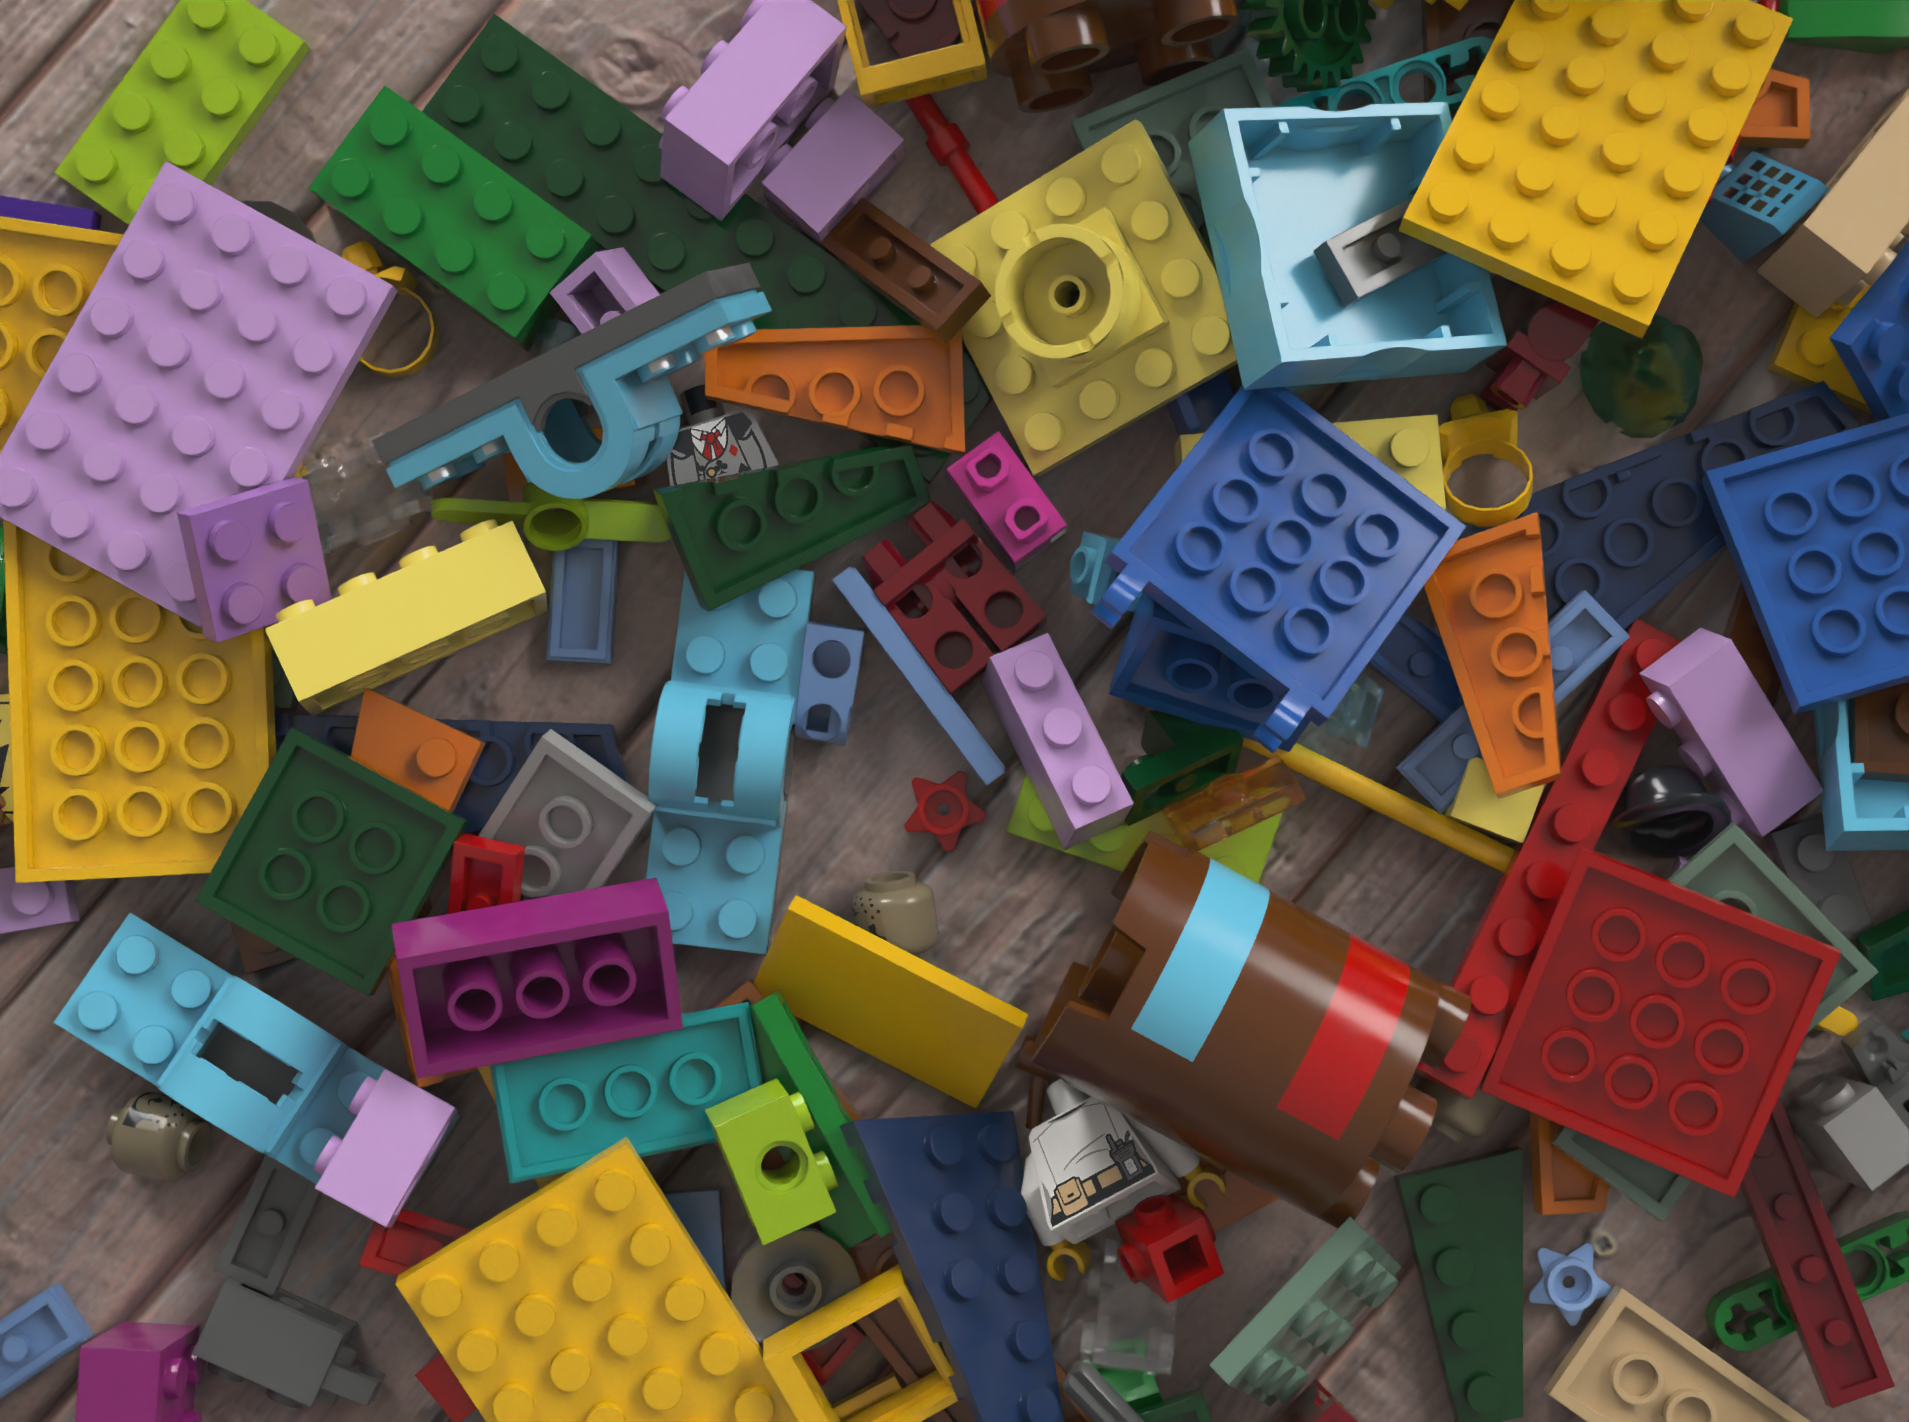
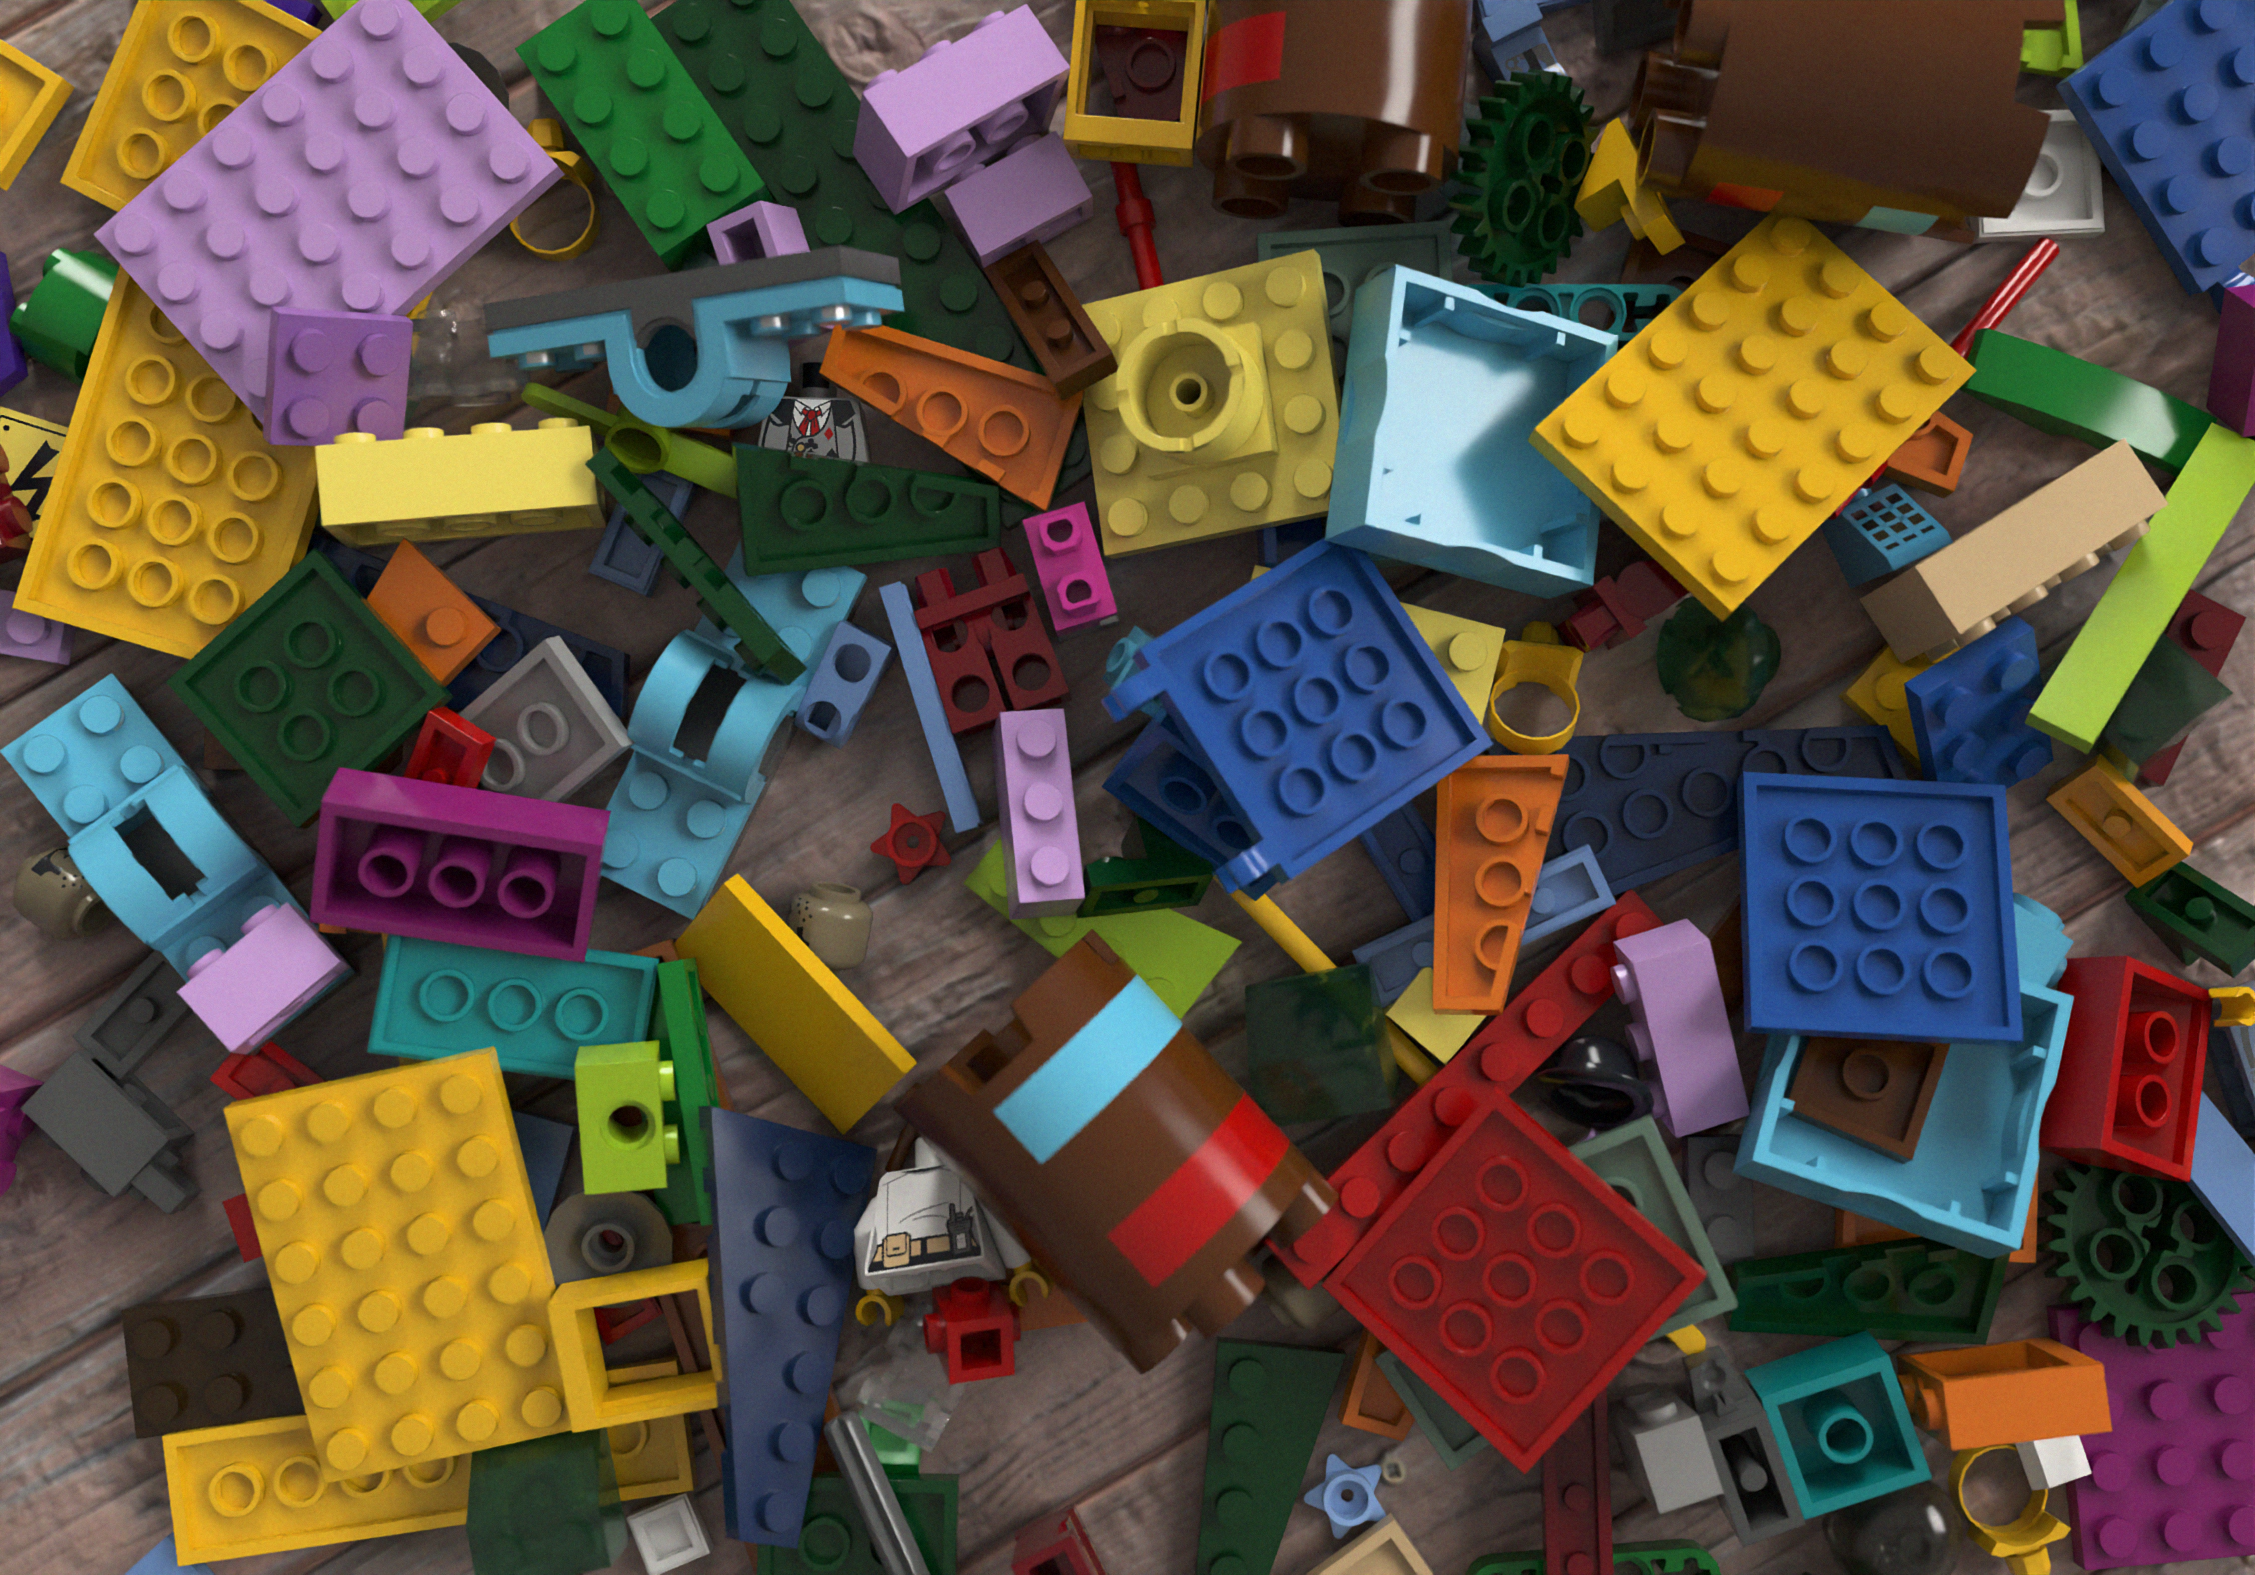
camera: 20 degrees right, 0 degrees up
(649, 617) = (692, 565): none -> dark green wing
(1234, 804) = (1184, 932): clear orange plate -> none
(1308, 1316) = (1081, 1443): sand green plate -> none
(1356, 713) = (1331, 883): clear light blue plate -> none
(1373, 255) = (1495, 457): dark grey plate -> none
(1398, 866) = (1319, 1045): none -> clear green slope

